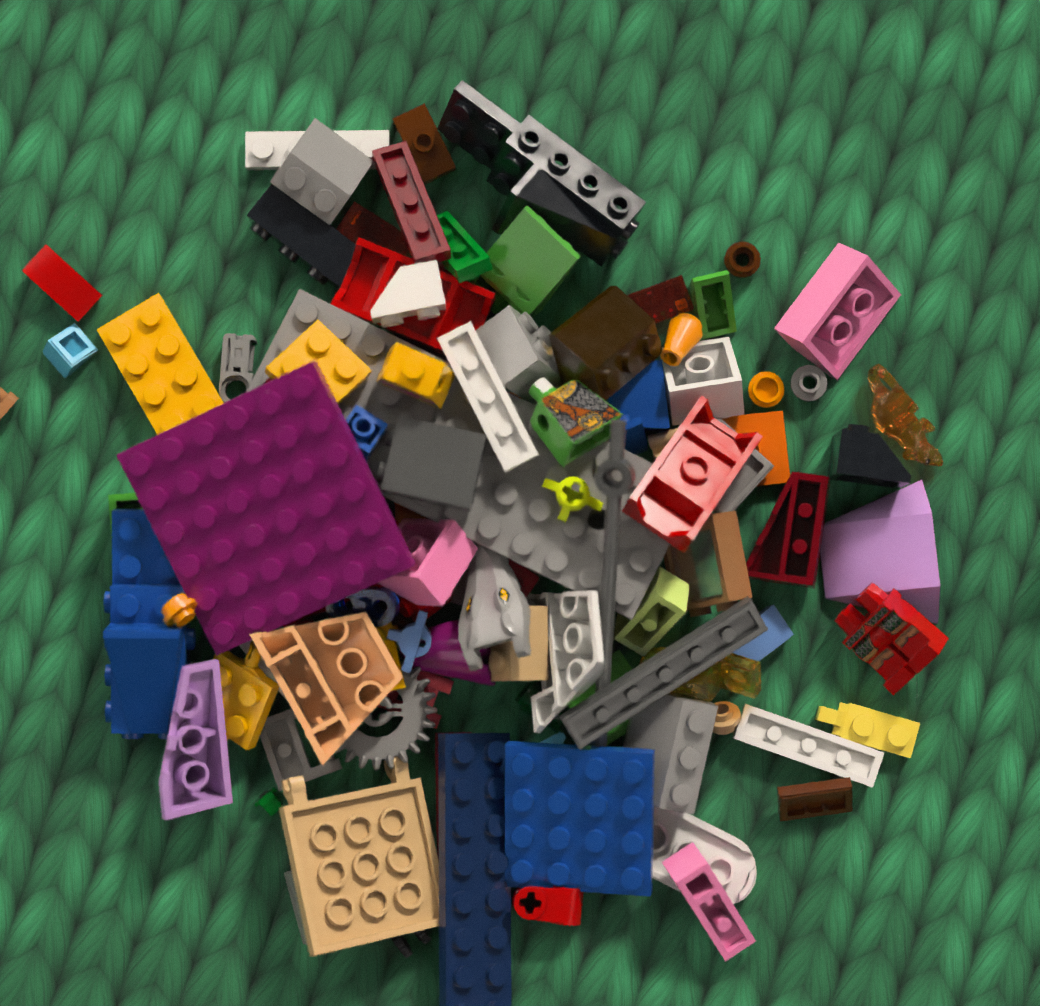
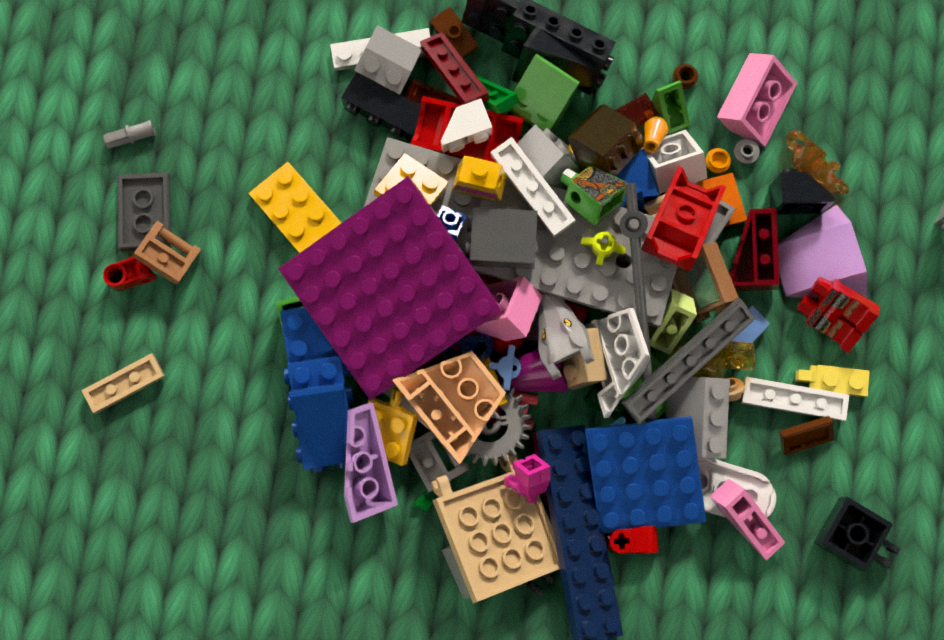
camera: 10 degrees left, 5 degrees down
(61, 282) = (219, 165): red slope -> none
(69, 350) = (231, 211): medium azure slope -> none
(179, 610) = (339, 371): light orange plate -> none
(236, 361) = (349, 198): light grey piece -> none
(418, 796) = (530, 477): none -> dark pink piece
(875, 950) = (870, 533): none -> black hinge

